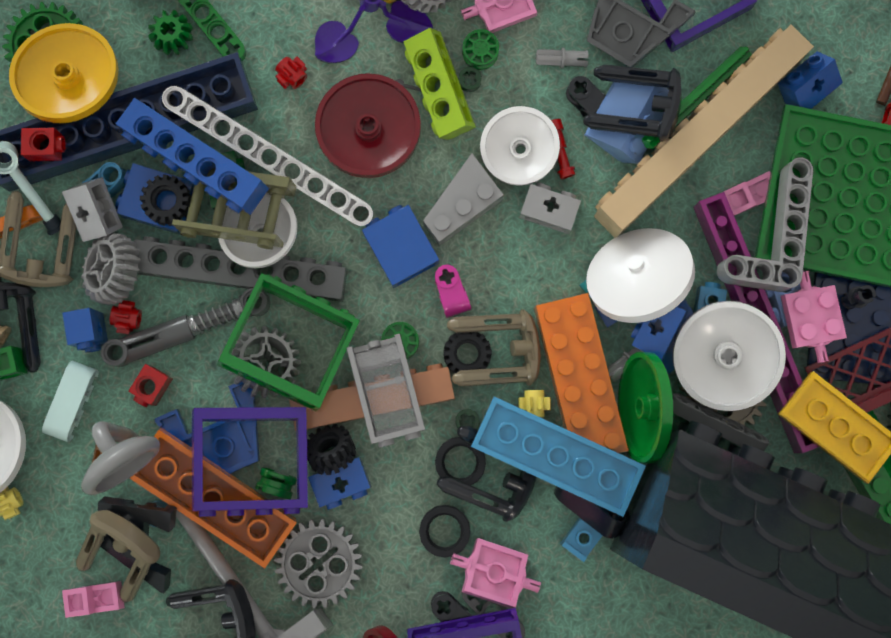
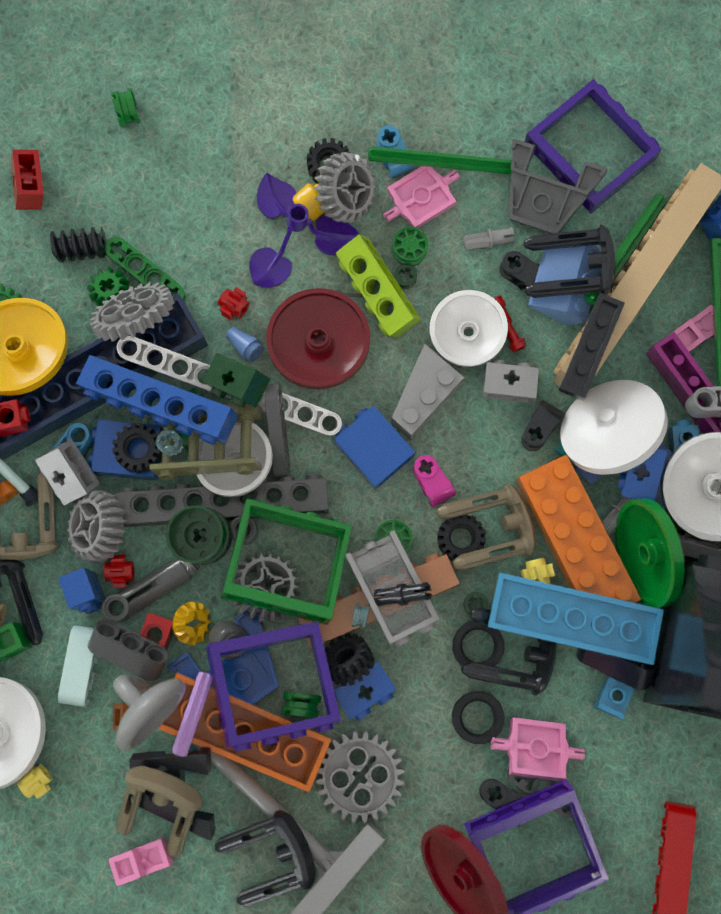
camera: 10 degrees left, 5 degrees down
(117, 396) = (127, 650): none -> dark grey beam
(165, 471) = (192, 714): none -> lavender axle
(181, 373) = (187, 613): none -> yellow gear
(185, 61) = (131, 311): none -> light grey gear
(194, 294) = (184, 535): none -> dark green wheel
(195, 209) = (167, 435): none -> clear light blue bush
(217, 398) = (225, 631): none -> dark grey head
(272, 153) = (236, 380): none -> dark green brick
(295, 117) = (245, 344): none -> medium blue cone
(306, 210) = (277, 430): none -> dark grey beam
(349, 410) = (360, 616): none -> clear light blue bush
(394, 398) = (402, 594): none -> black pin
(573, 255) = (542, 422): none -> black piece
(635, 191) = (591, 346): none -> black plate

